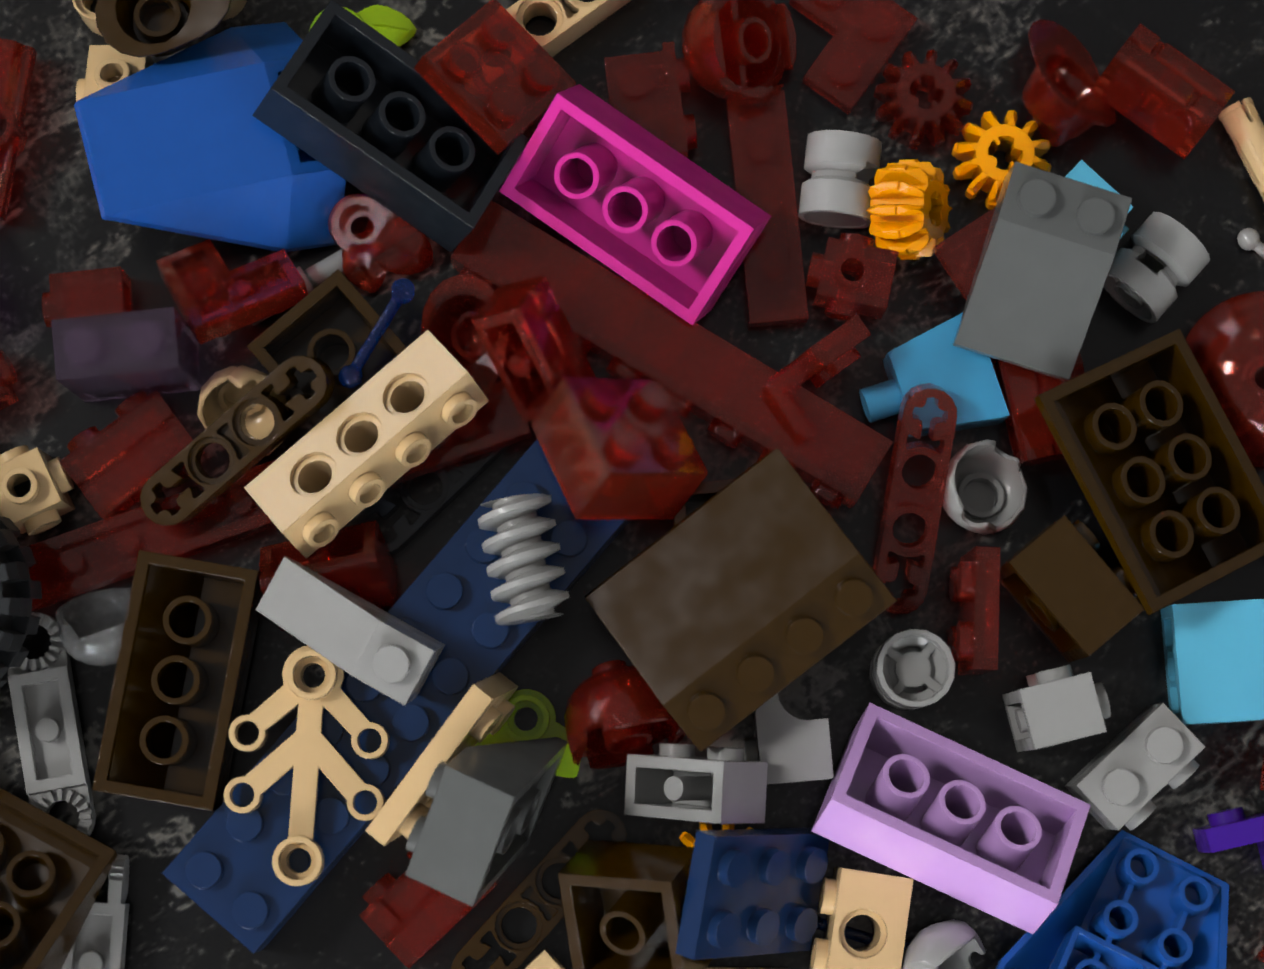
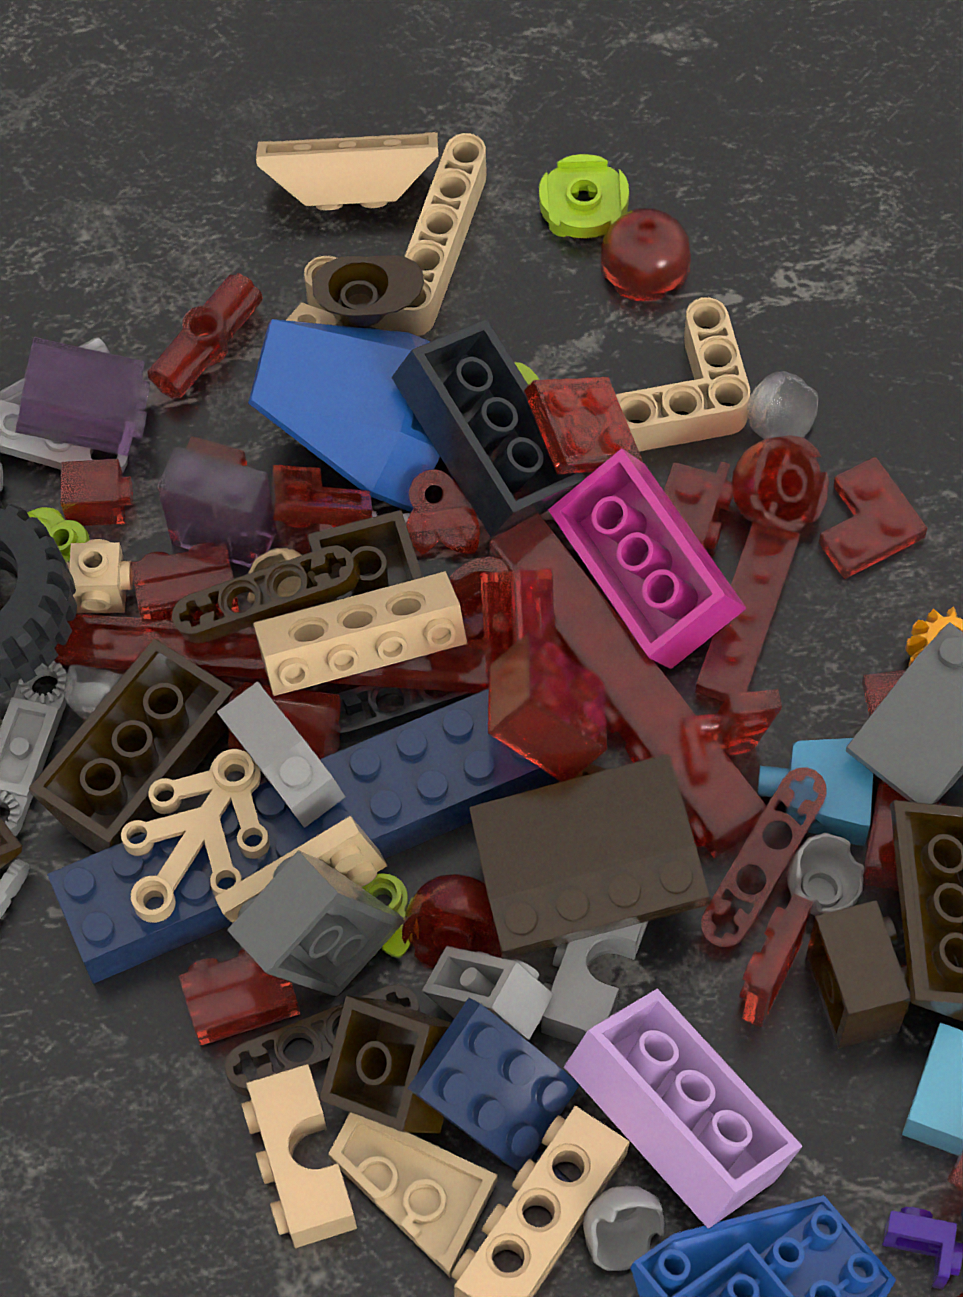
camera: 30 degrees right, 20 degrees down
(402, 293) = (440, 544): clear blue hinge -> none
(522, 559) = (432, 755): light grey piece -> none
(840, 178) = (812, 612): light grey wheel -> none
(868, 264) = (798, 677): clear red brick -> none
(909, 208) = (855, 647): light orange gear -> none
(912, 669) = (707, 974): light grey wheel -> none
(943, 94) = (892, 570): clear red gear -> none
(1056, 709) = (807, 1061): light grey brick -> none
(1135, 767) = (856, 1143): light grey brick -> none

